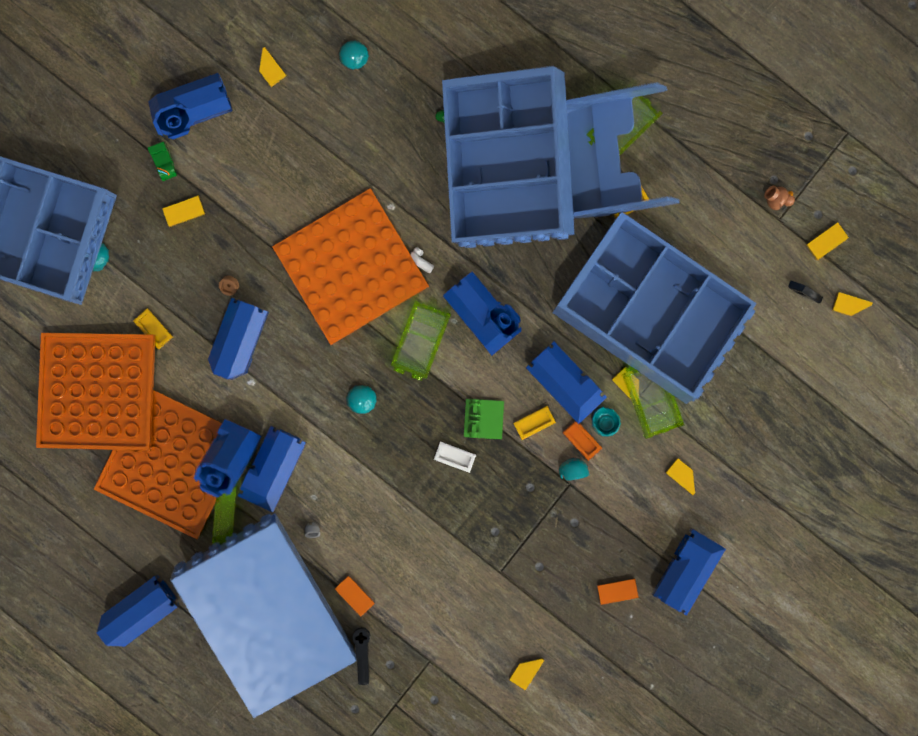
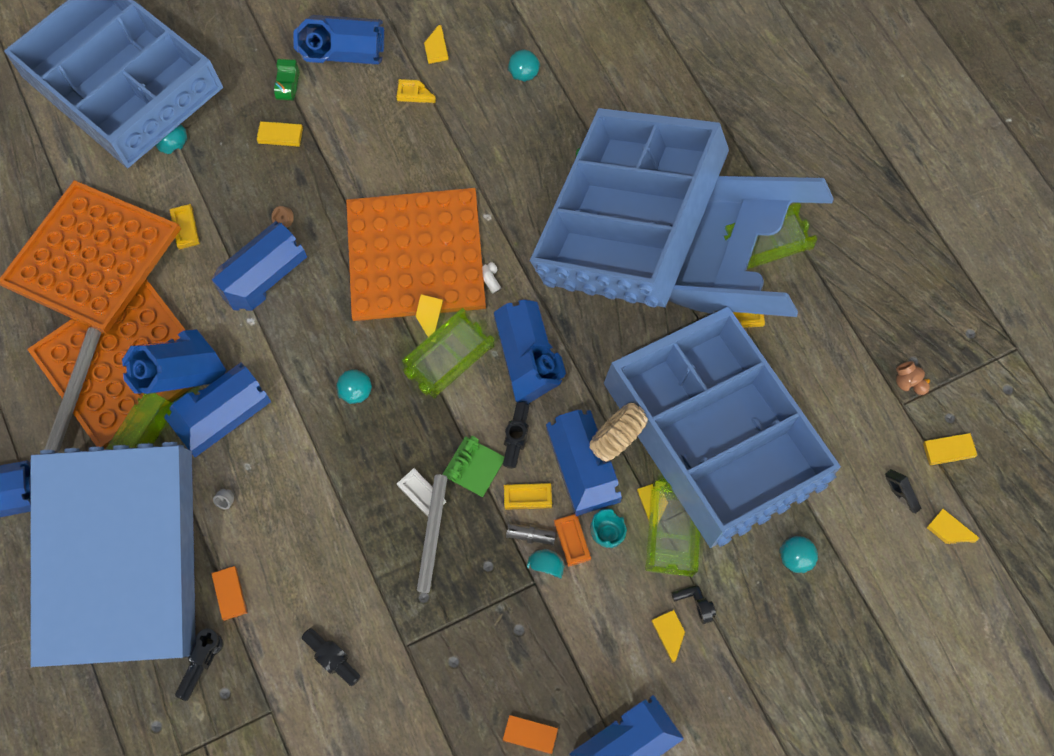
camera: 30 degrees right, 20 degrees down
(151, 504) = (73, 390): none -> light grey axle
(273, 120) = (414, 92): none -> yellow tile
(390, 316) = (428, 313): none -> yellow tile
(453, 606) = (331, 657): none -> black axle
(479, 484) = (432, 533): none -> light grey axle
(501, 370) = (513, 445): none -> black axle
(550, 450) = (531, 534): none -> flat silver pin
(586, 355) = (618, 432): none -> tan gear
(700, 447) = (704, 608): none -> black plate
(749, 374) = (798, 554): none -> teal hair

